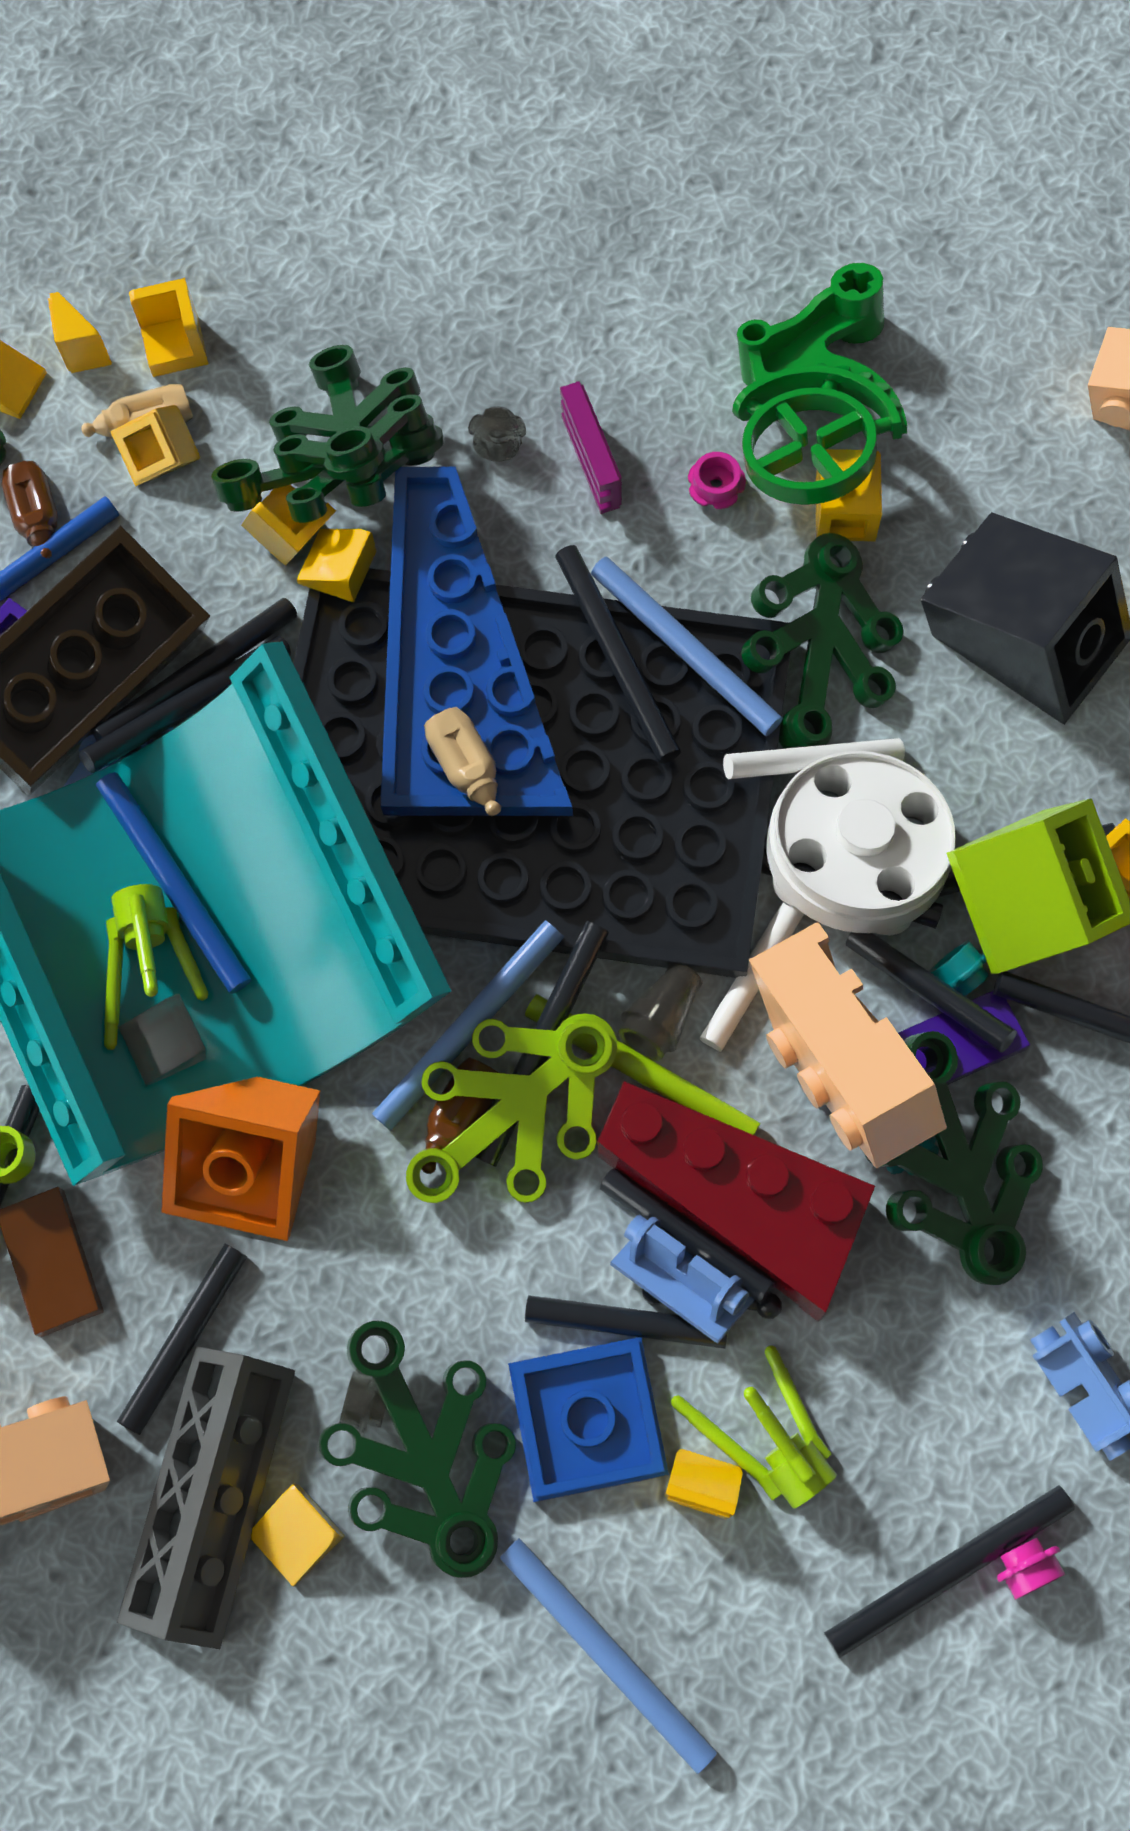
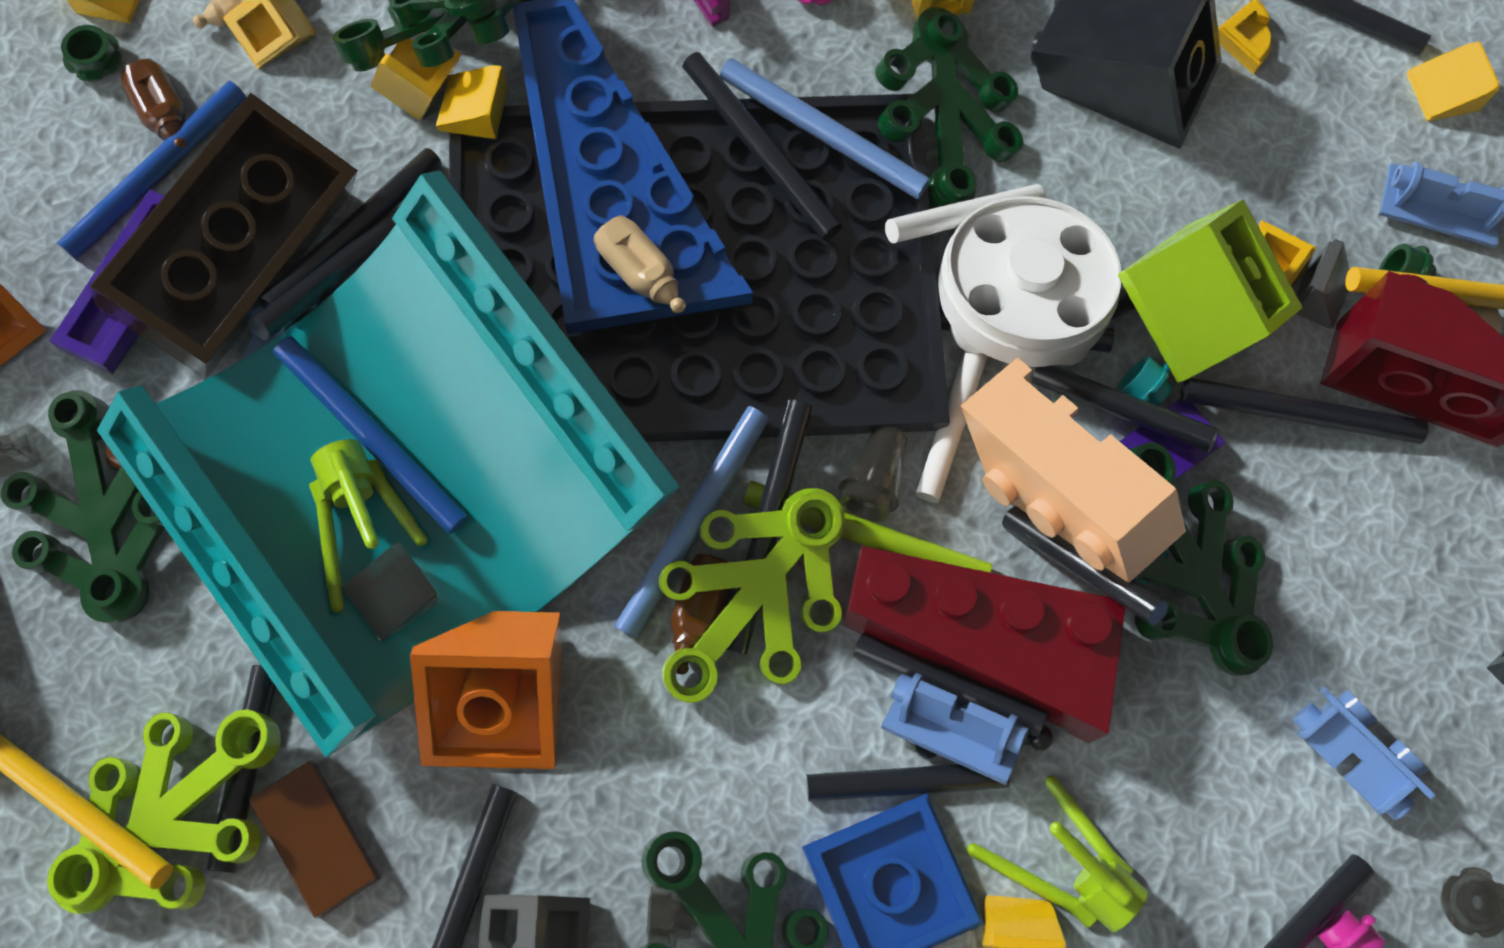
camera: 20 degrees left, 0 degrees up
(876, 1181) = (1129, 595): none -> black bar

